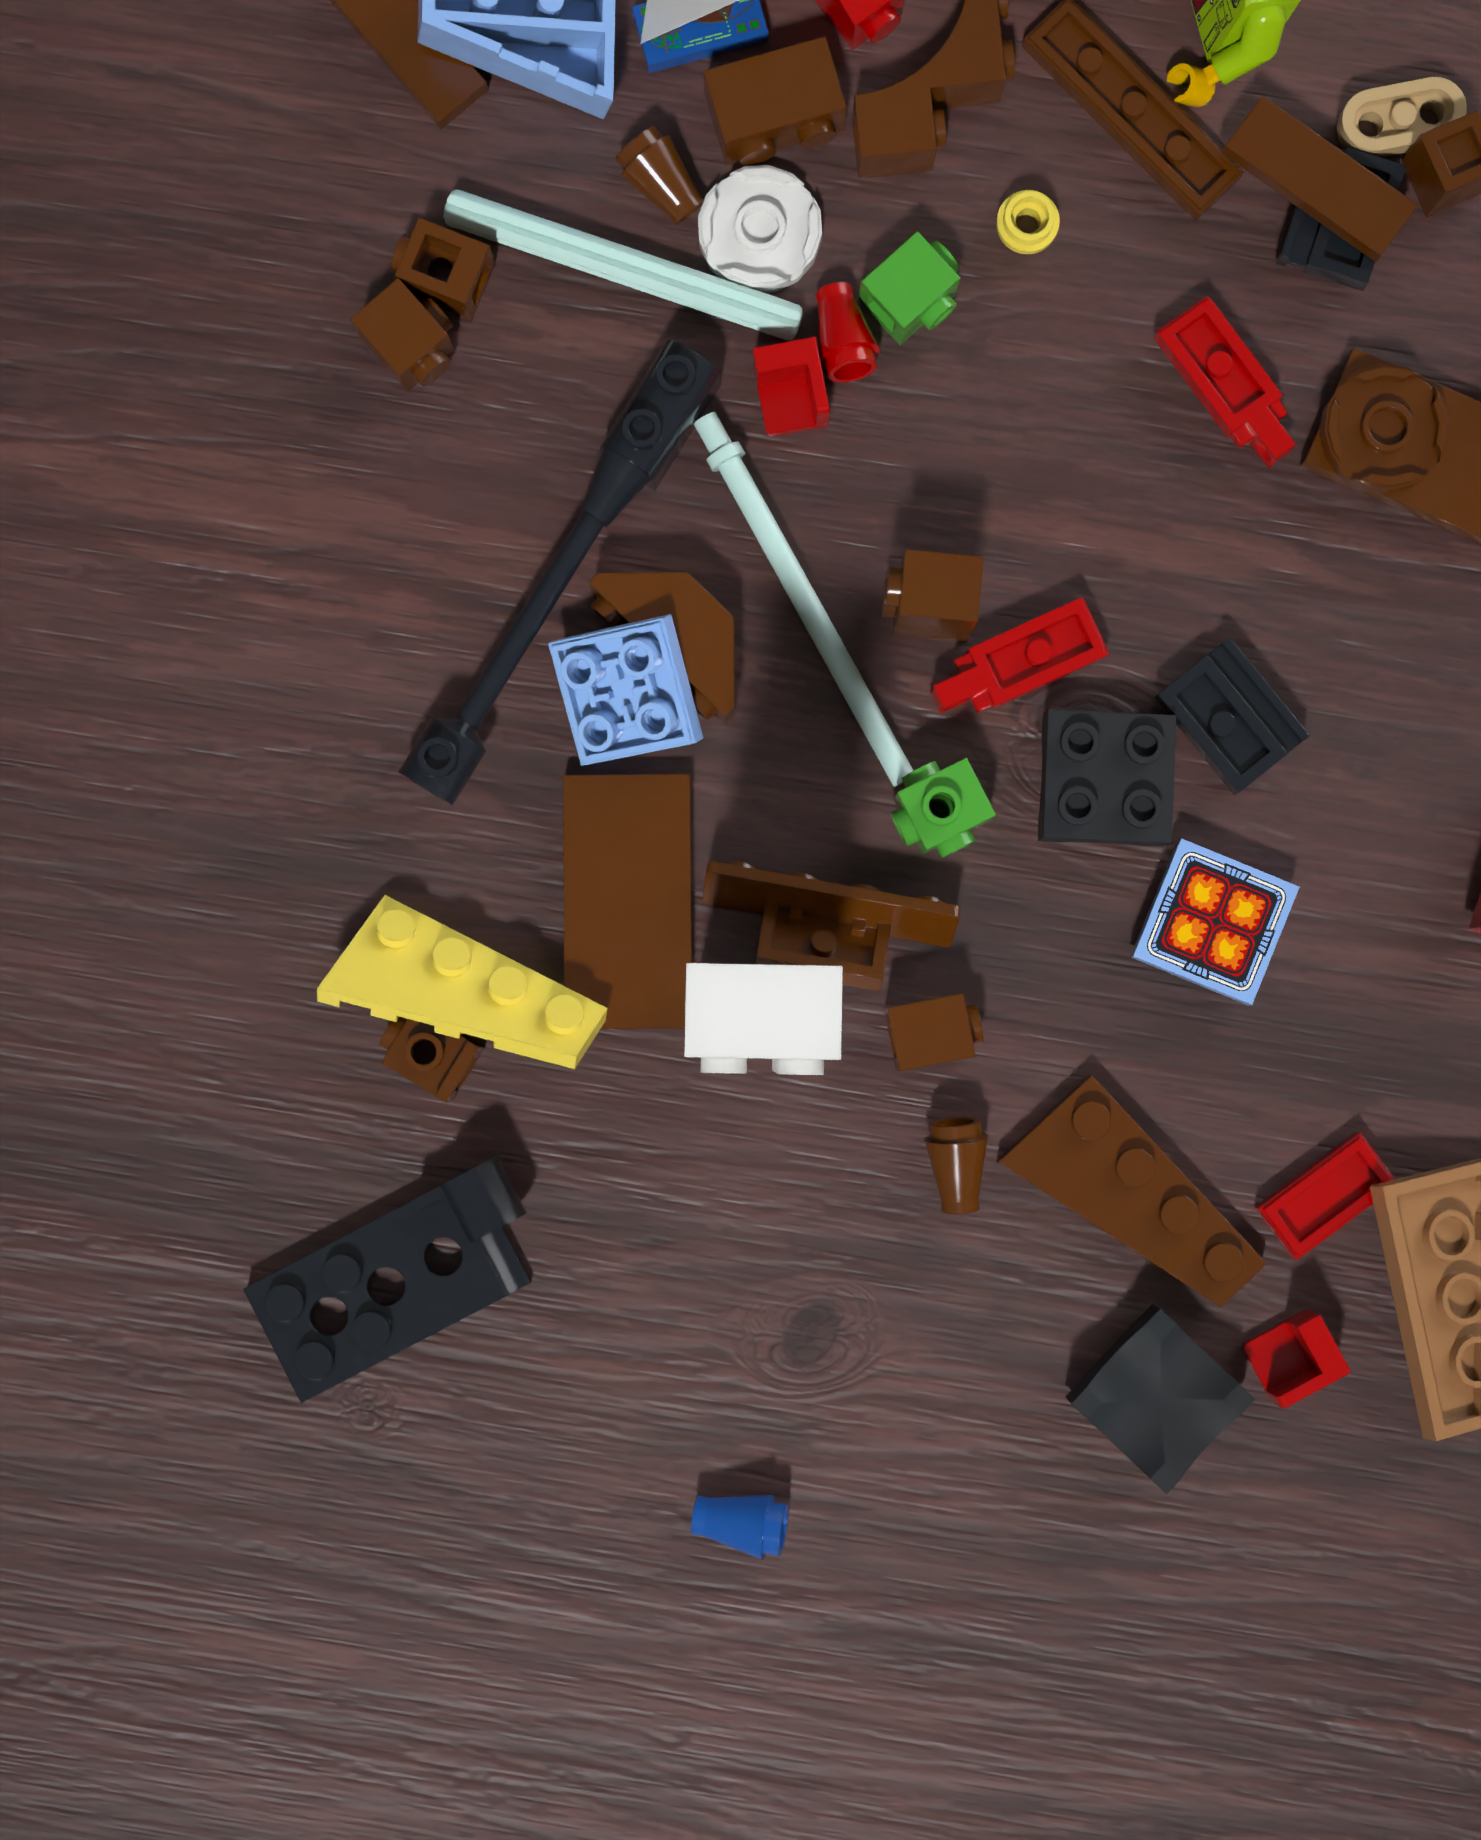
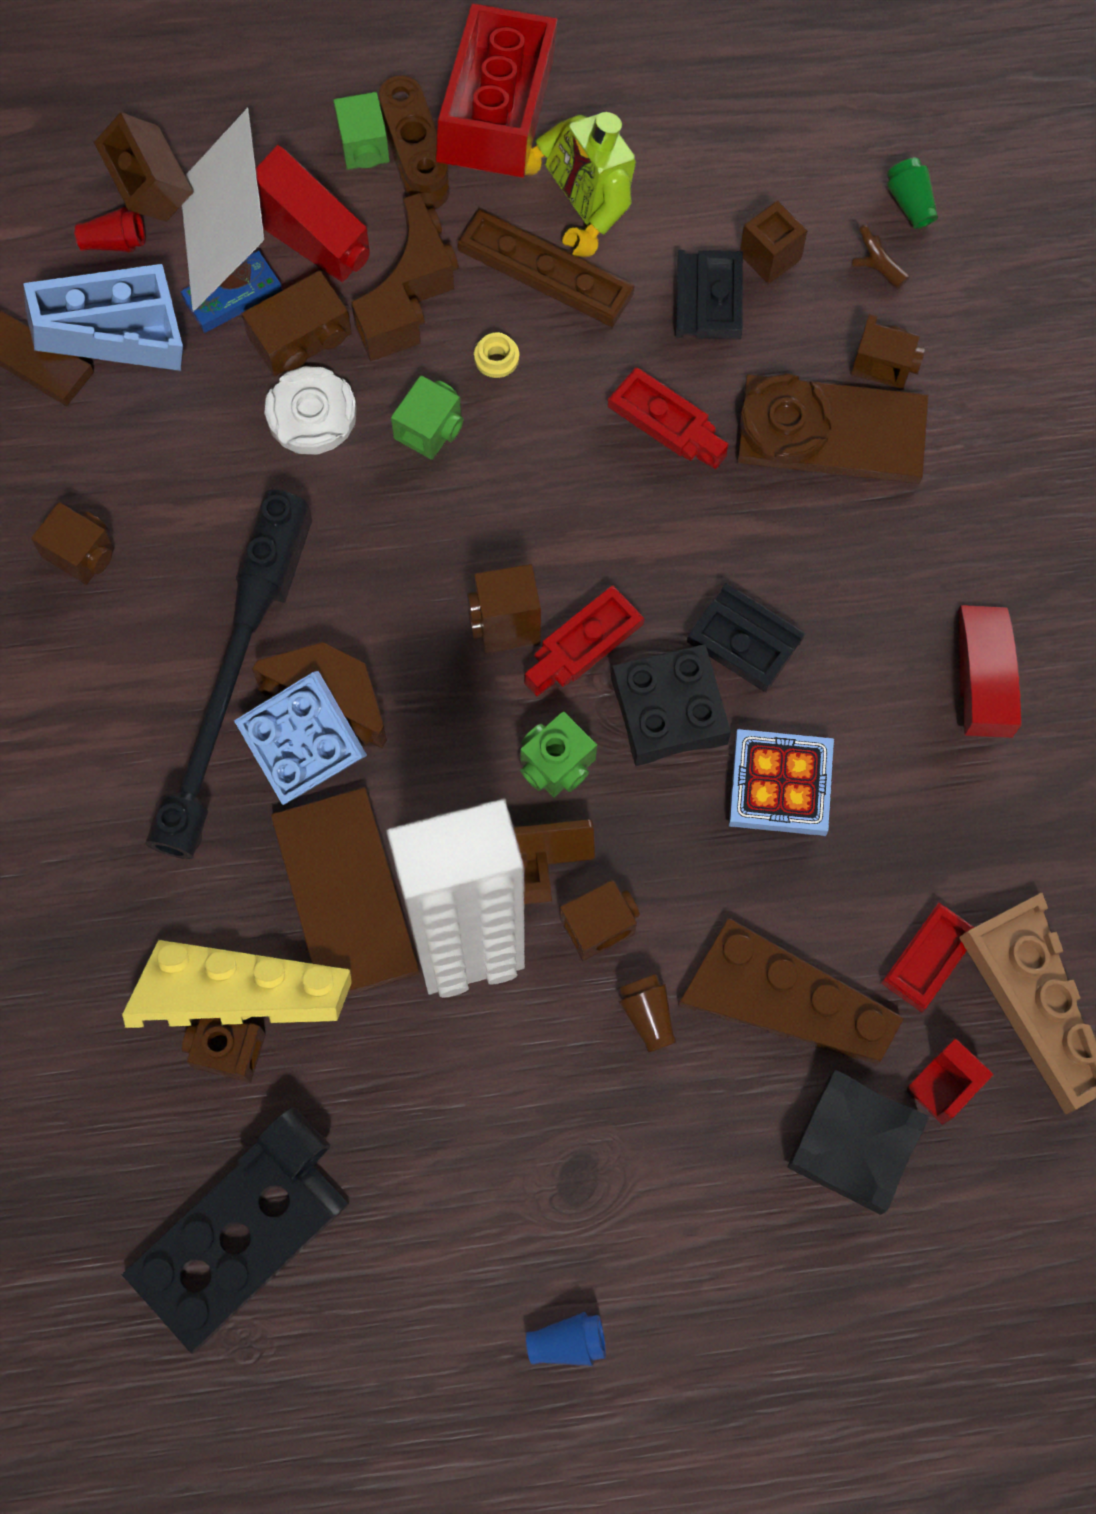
camera: 20 degrees left, 15 degrees down
(435, 246) = (92, 477): reddish brown brick -> none
(623, 265) = (219, 457): light aqua axle -> none
(659, 174) = (229, 391): reddish brown cone -> none
(727, 459) = (330, 564): light aqua bar -> none
(791, 387) = (362, 503): red panel -> none
(844, 338) = (391, 462): red cone -> none
(1319, 178) = (686, 272): reddish brown tile -> none
(1396, 114) = (724, 222): tan plate -> none

